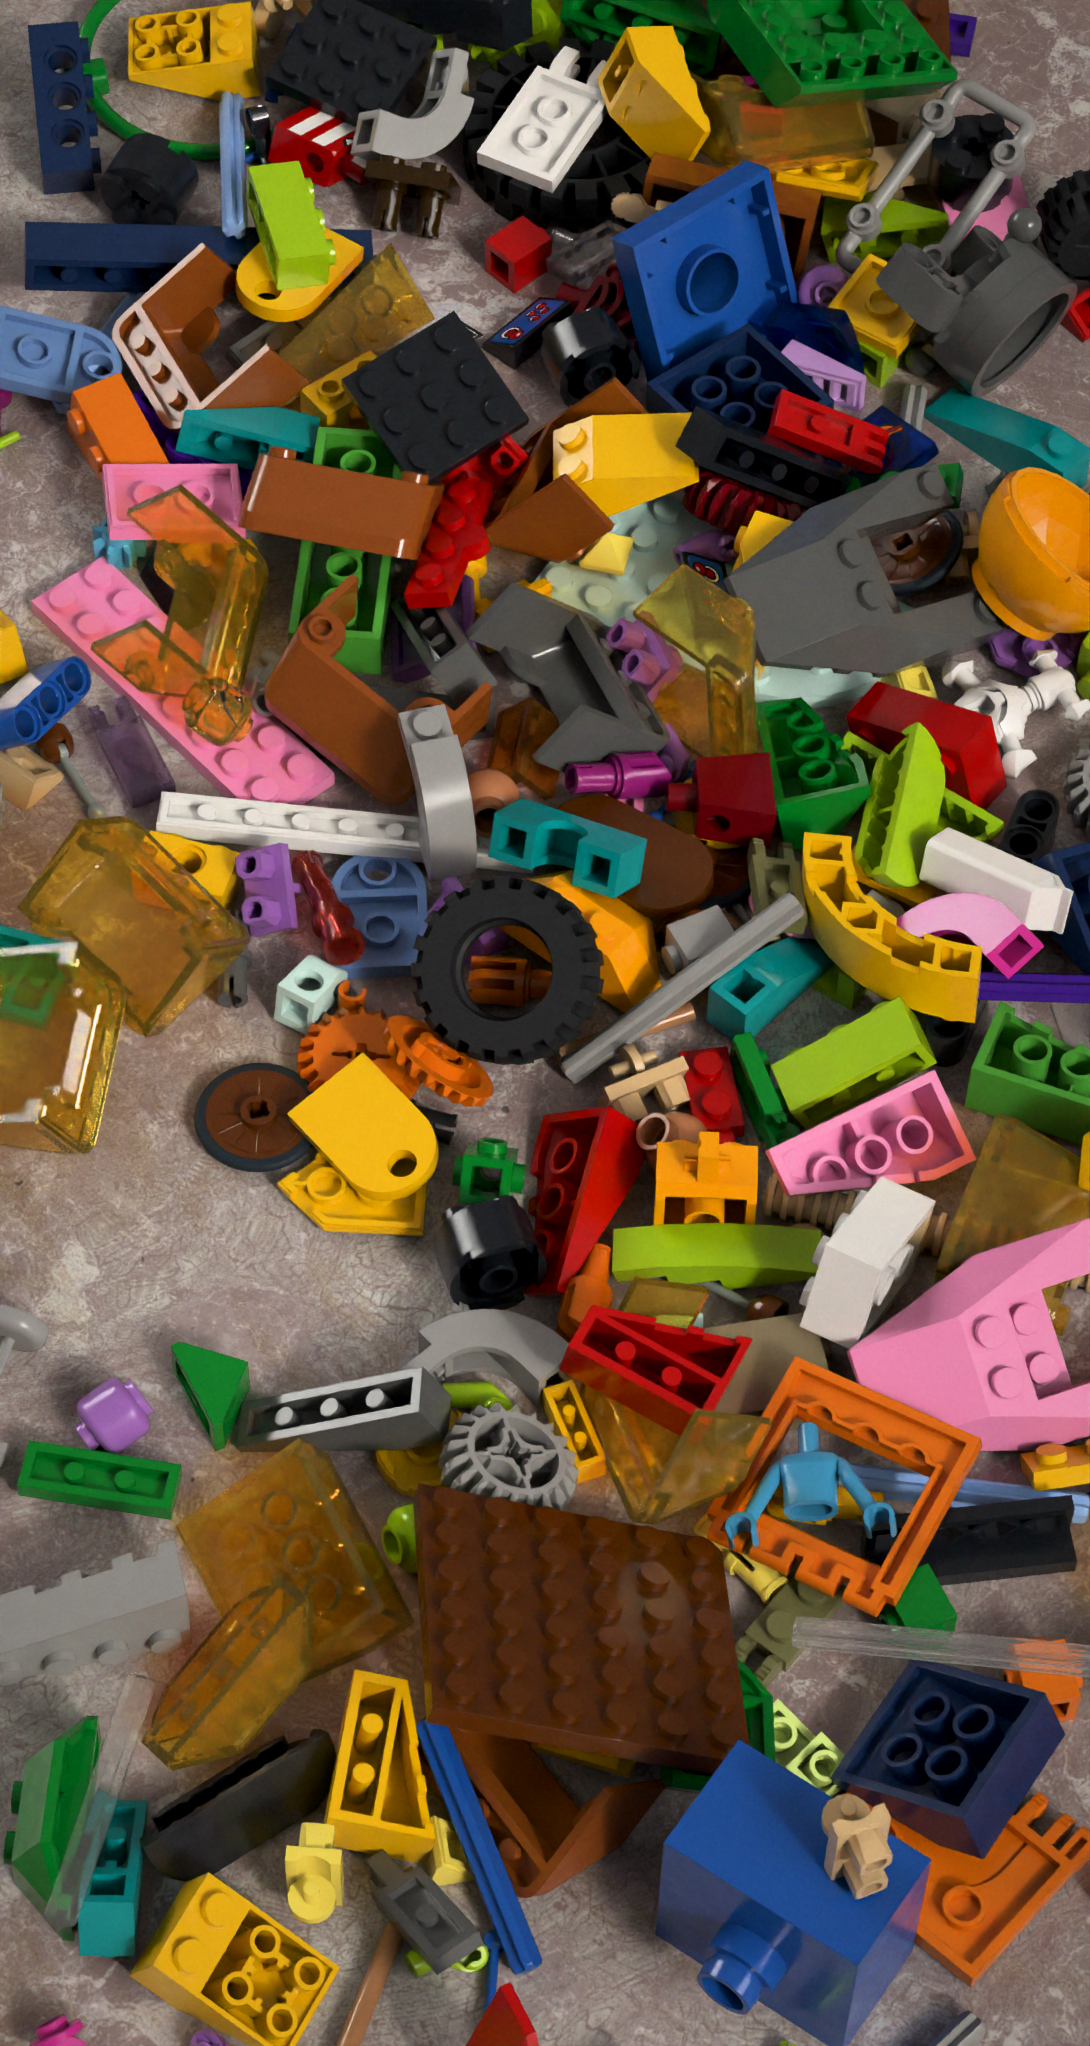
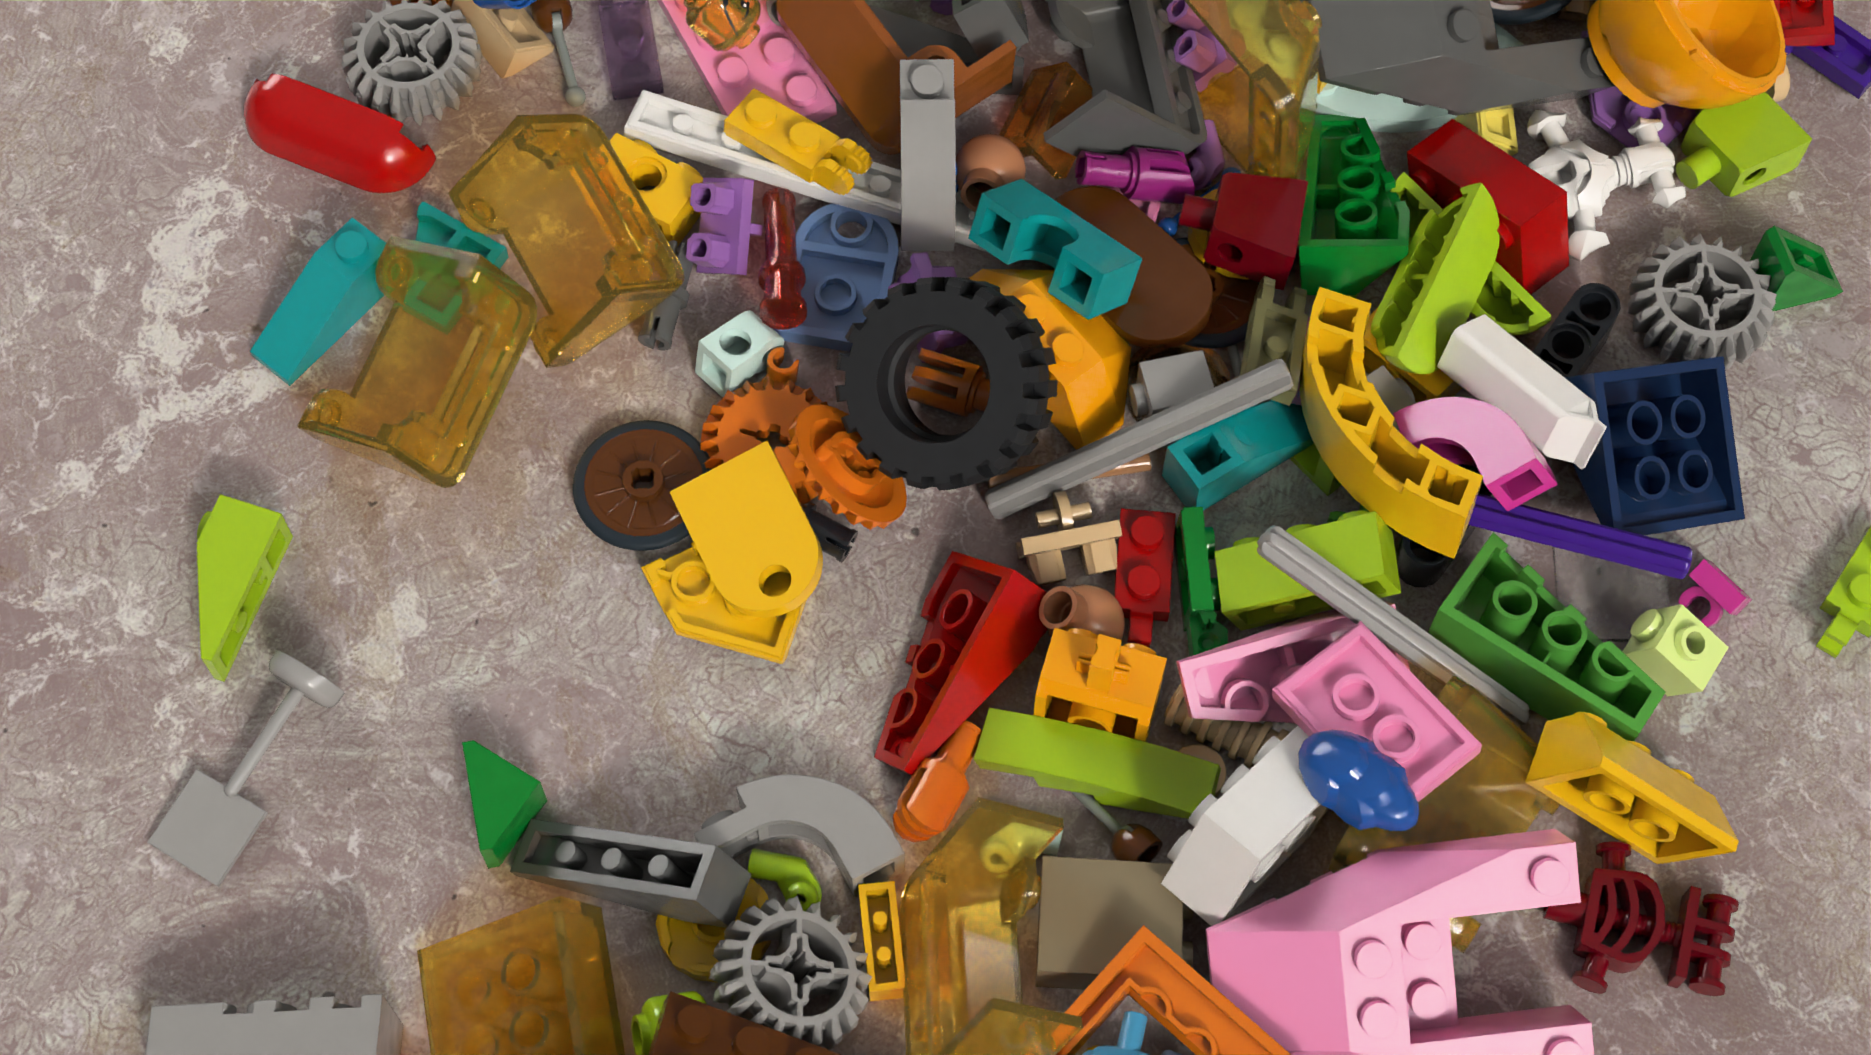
camera: 15 degrees right, 10 degrees up
(99, 1480) = (349, 879): green plate -> none
(113, 1416) = (383, 807): medium lavender head -> none
(314, 808) = (796, 142): none -> yellow hinge
(475, 1184) = (868, 613): green brick -> none
(489, 1254) = (840, 710): black brick -> none
(653, 1365) = (978, 907): red wedge -> none
(918, 1077) = (1382, 619): none -> light grey axle
(942, 1201) = (1357, 781): none -> blue arm
(944, 1157) = (1371, 693): none -> bright pink tile

